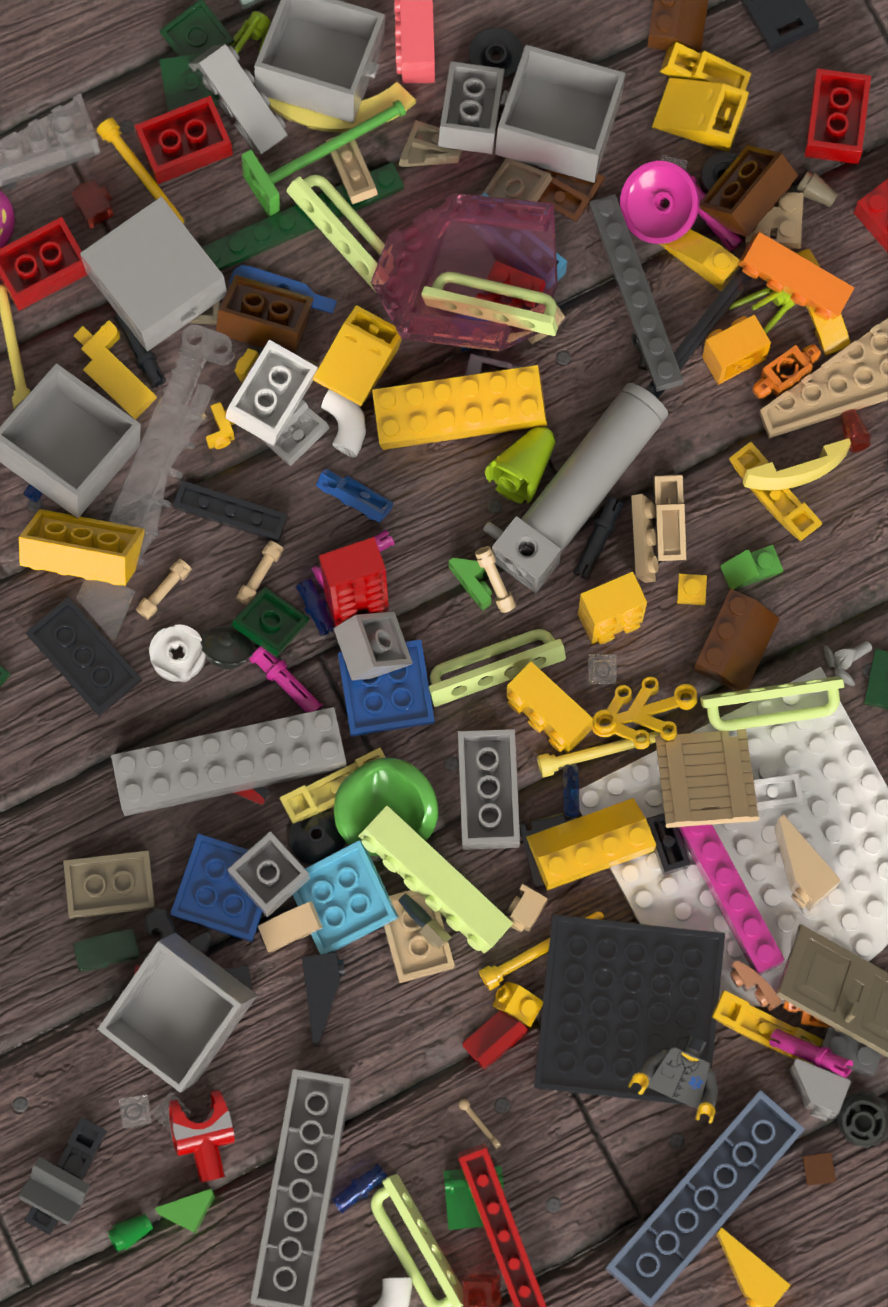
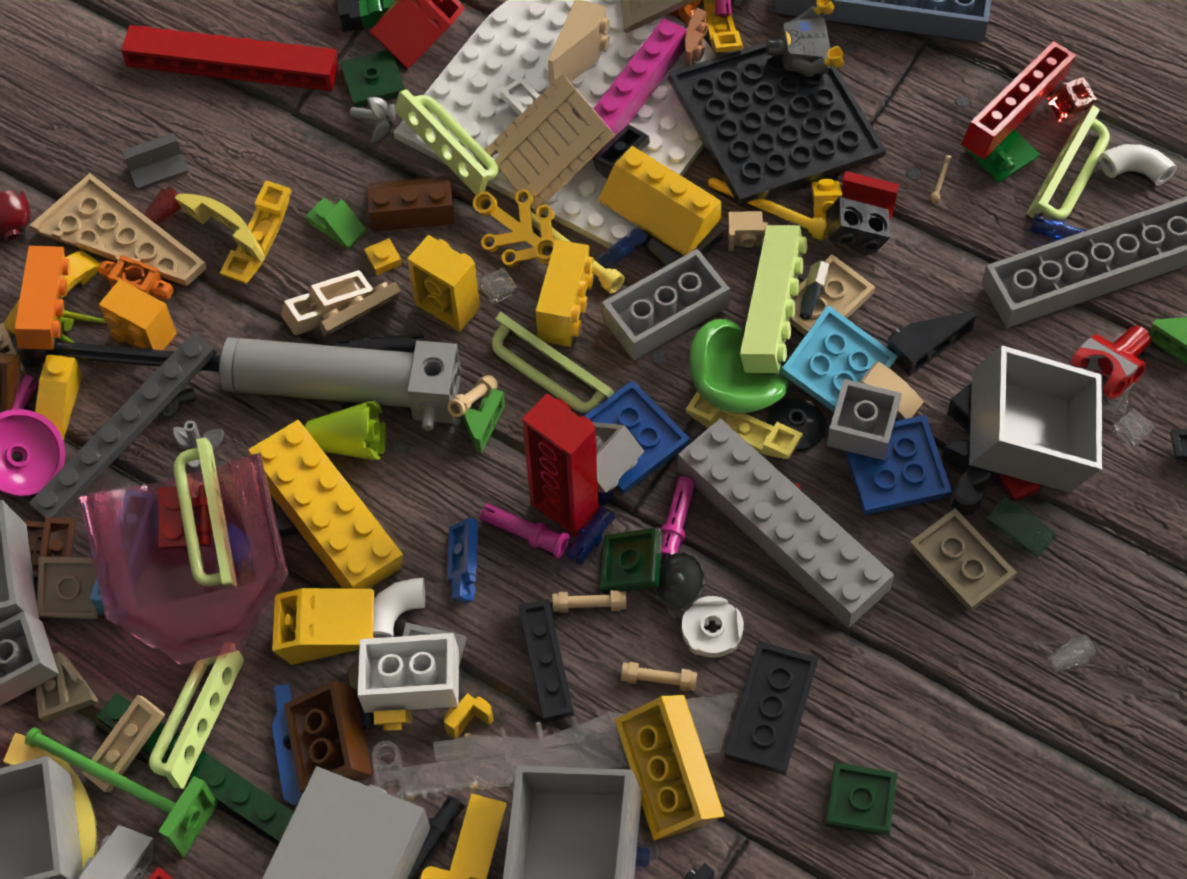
camera: 120 degrees left, 15 degrees down
(471, 1007) = (858, 224): none -> black brick
(593, 343) = (187, 436): none -> light grey plant

